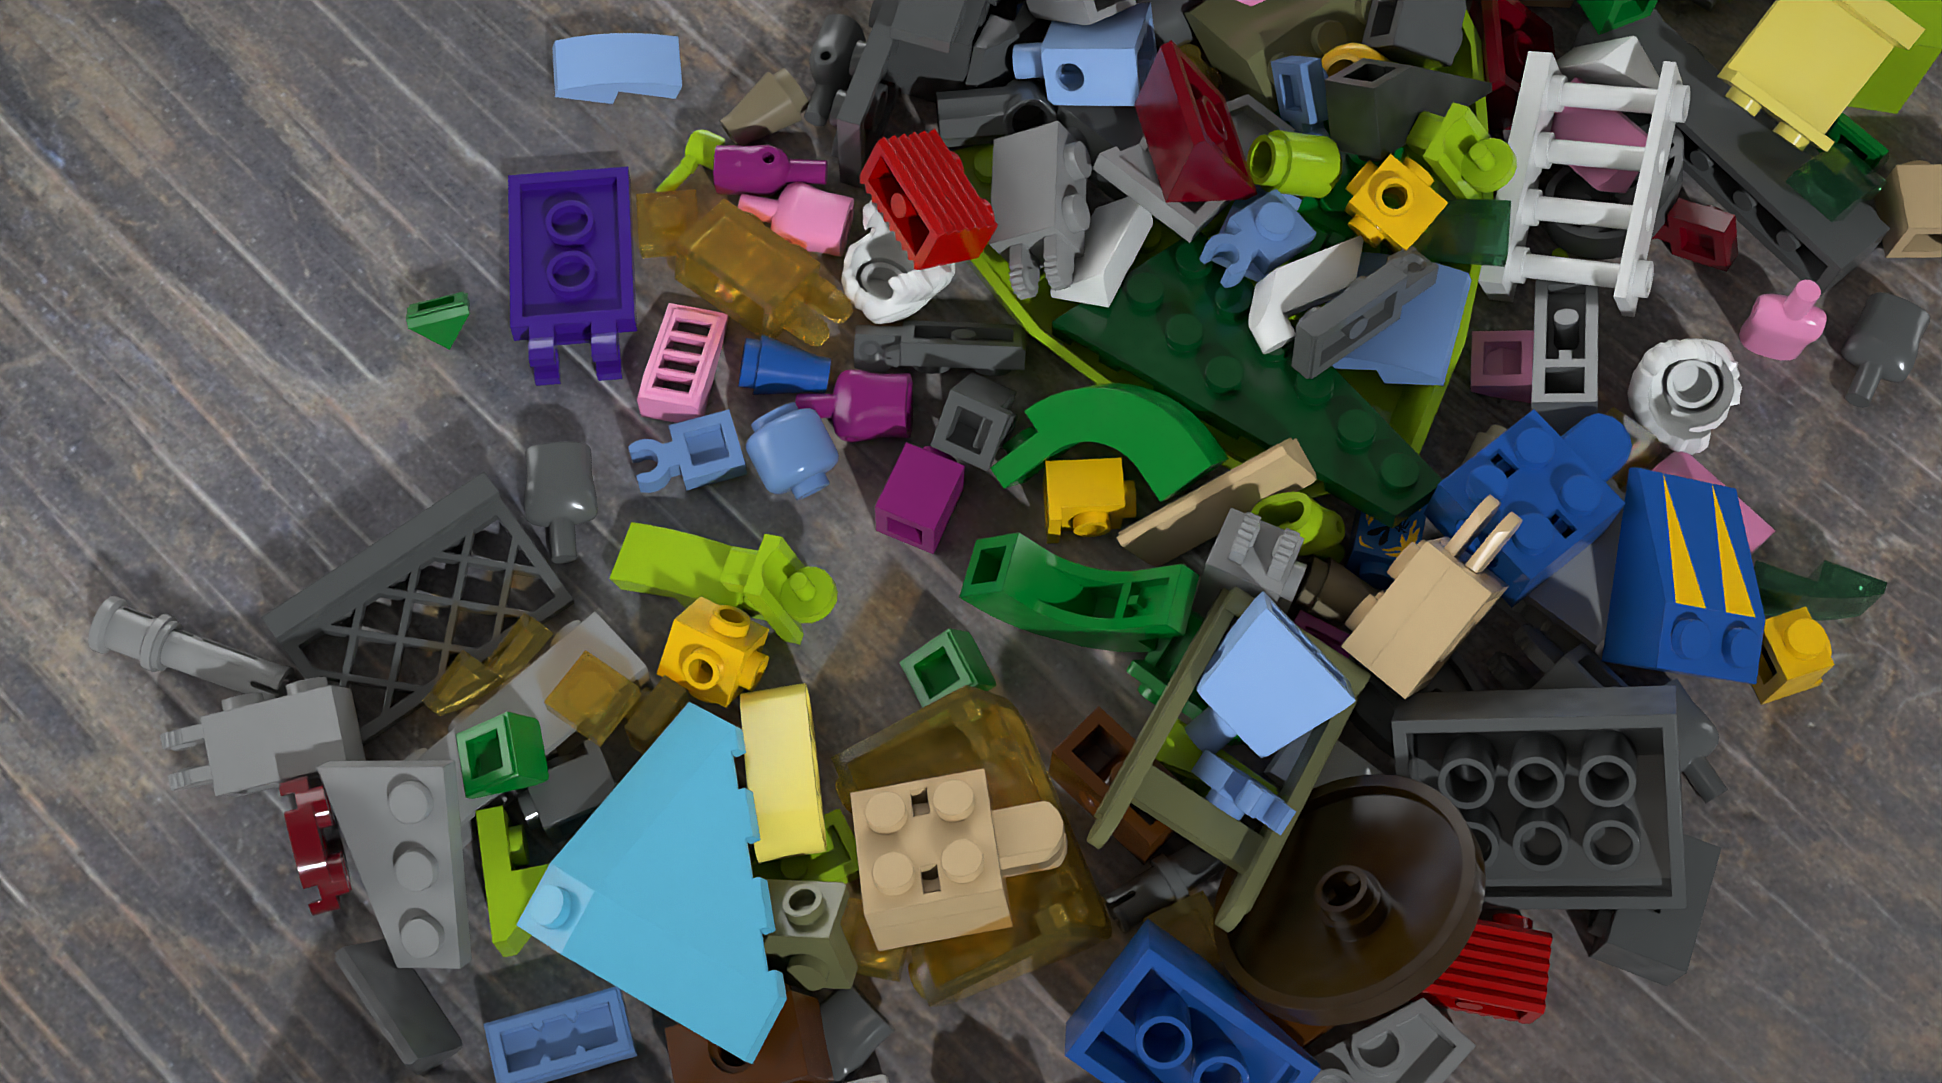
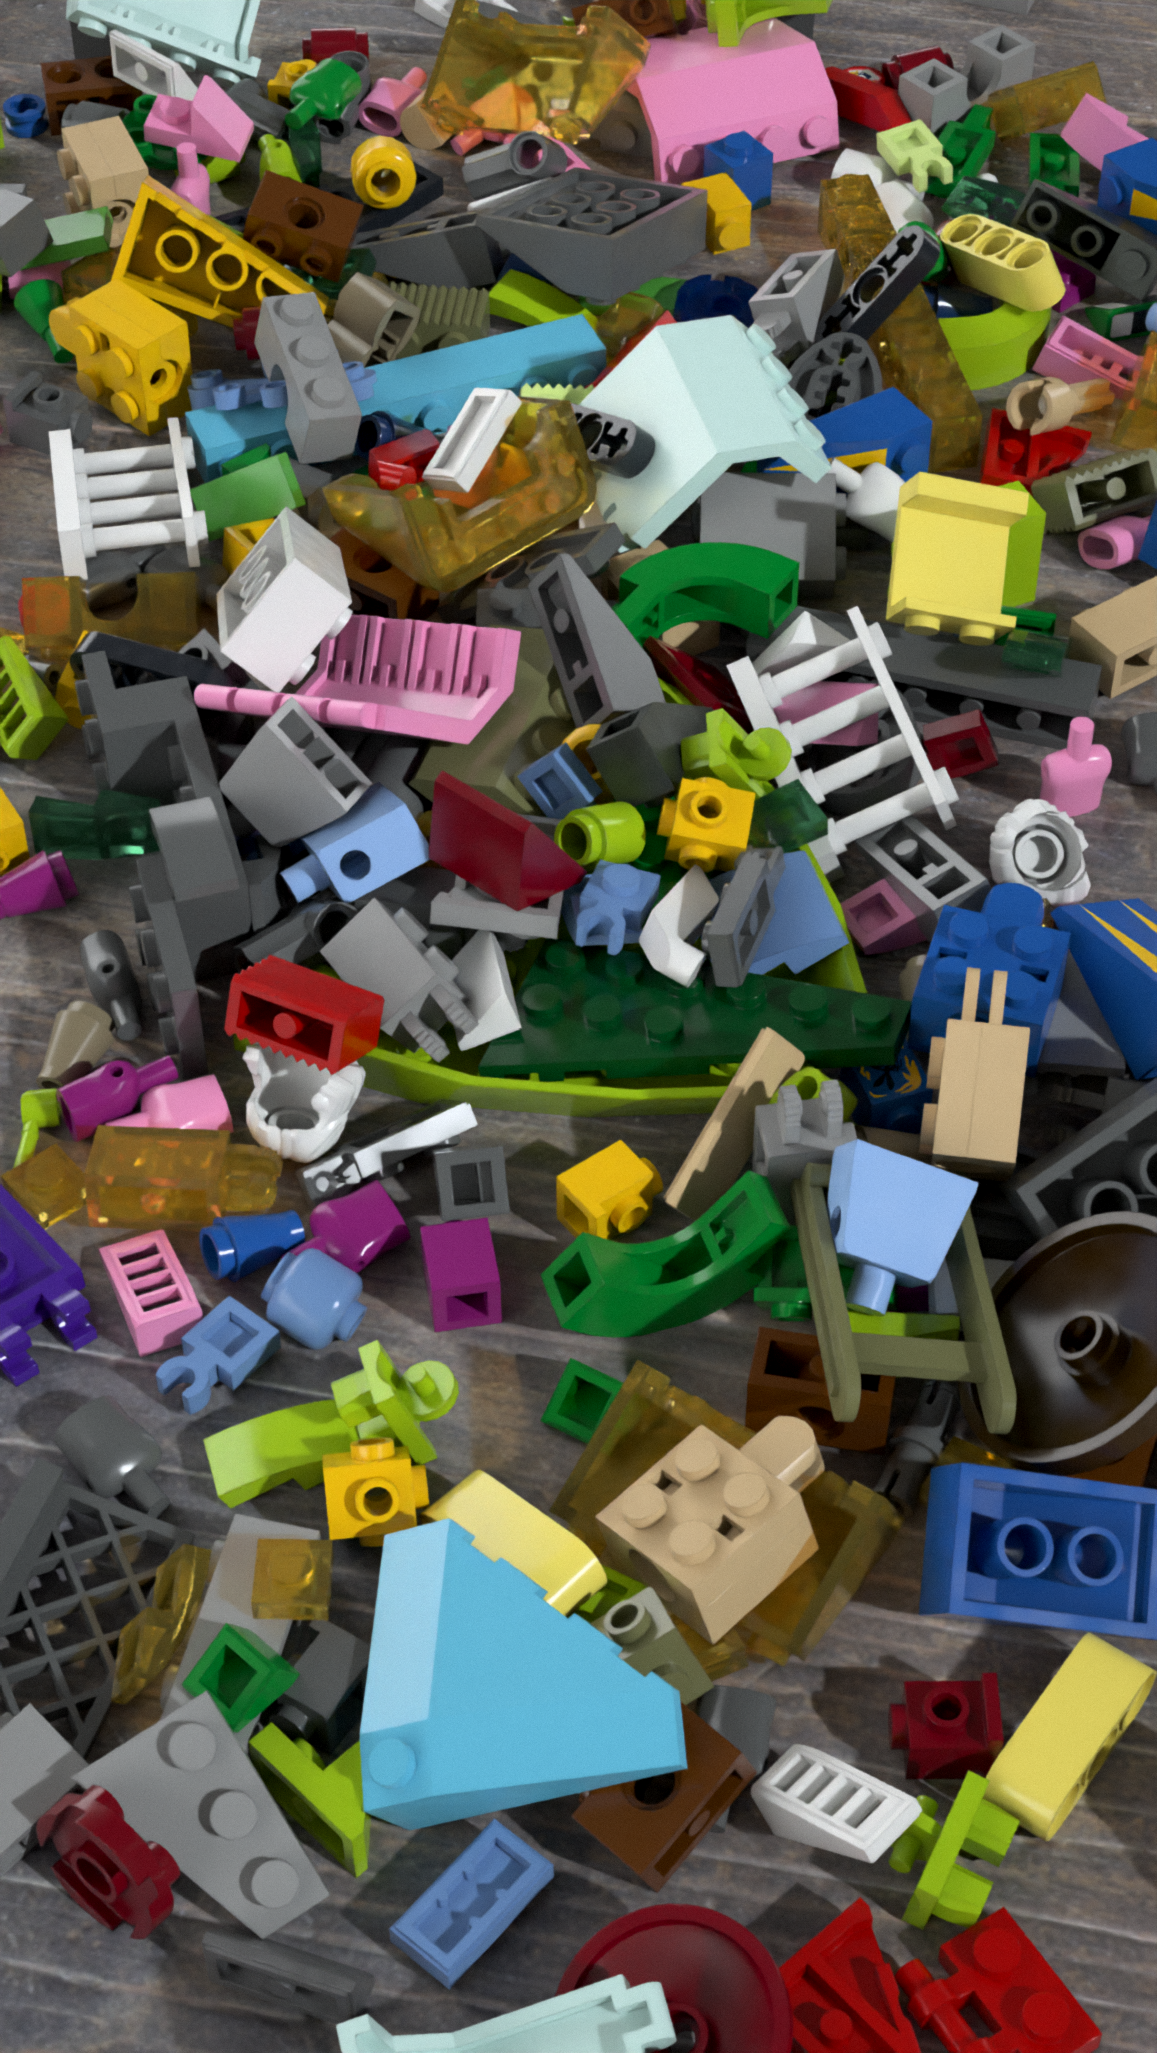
camera: 30 degrees left, 20 degrees down
(654, 713) = (354, 1579): clear yellow plate -> none
(1144, 425) = (596, 1097): green arch -> none
(1240, 793) = (939, 1312): medium blue plate -> none

